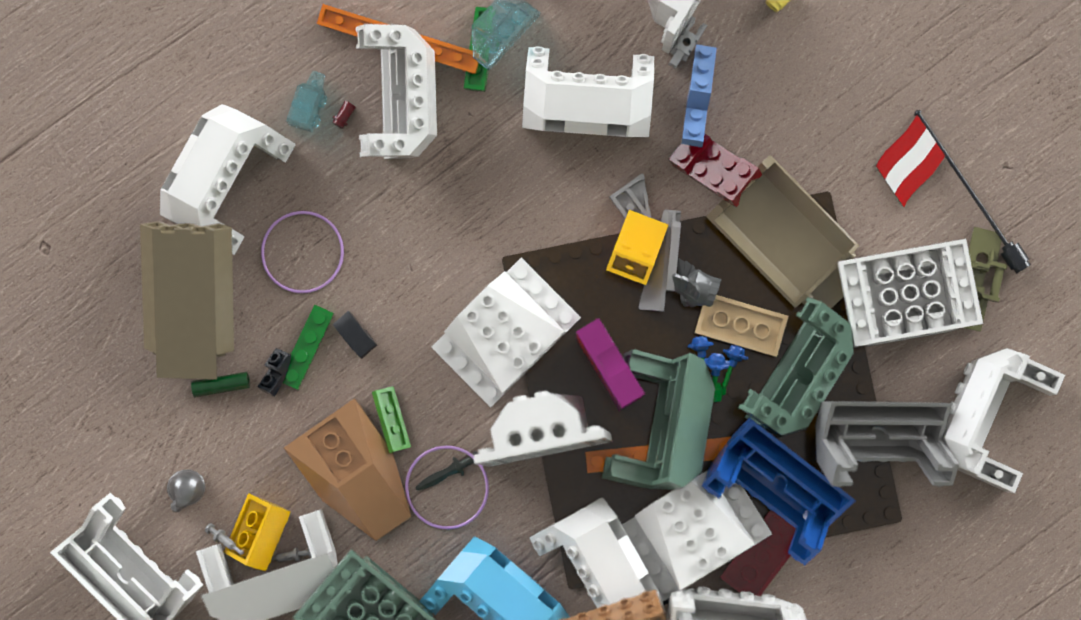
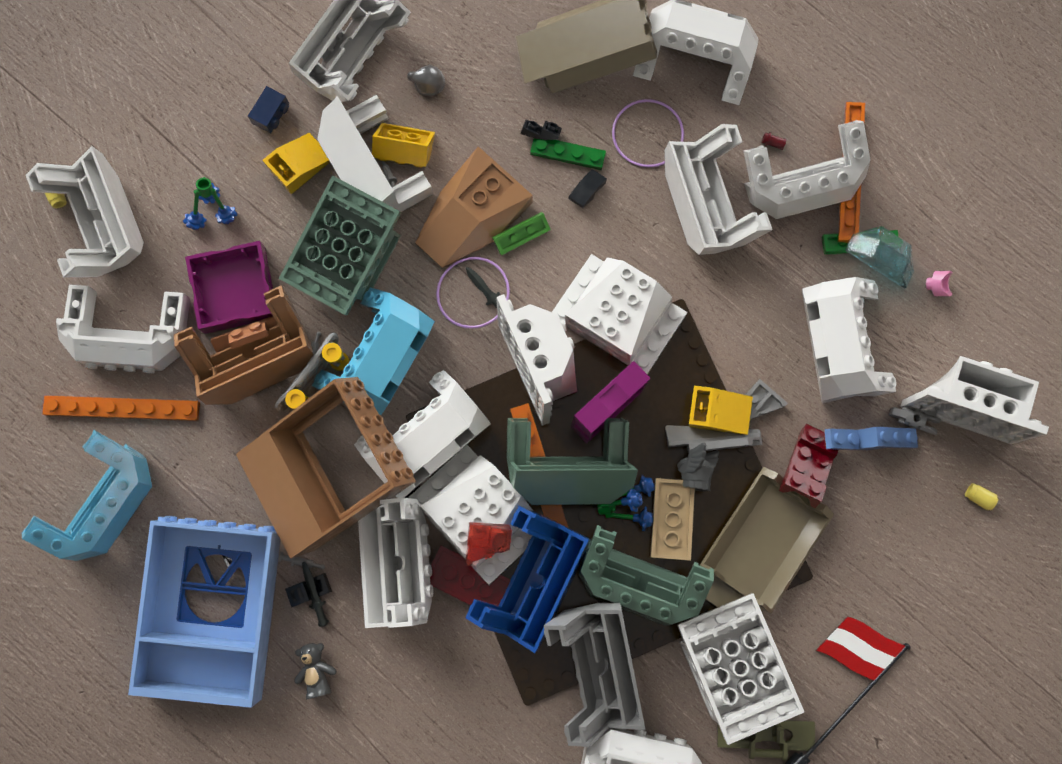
camera: 75 degrees right, 5 degrees down
(219, 536) = (393, 115): light grey piece -> none
(223, 384) = (521, 90): dark green piece -> none
(307, 103) = (776, 109): clear light blue hinge -> none
(395, 208) = (702, 196): none -> white wedge
(731, 526) = (486, 540): none -> clear red slope

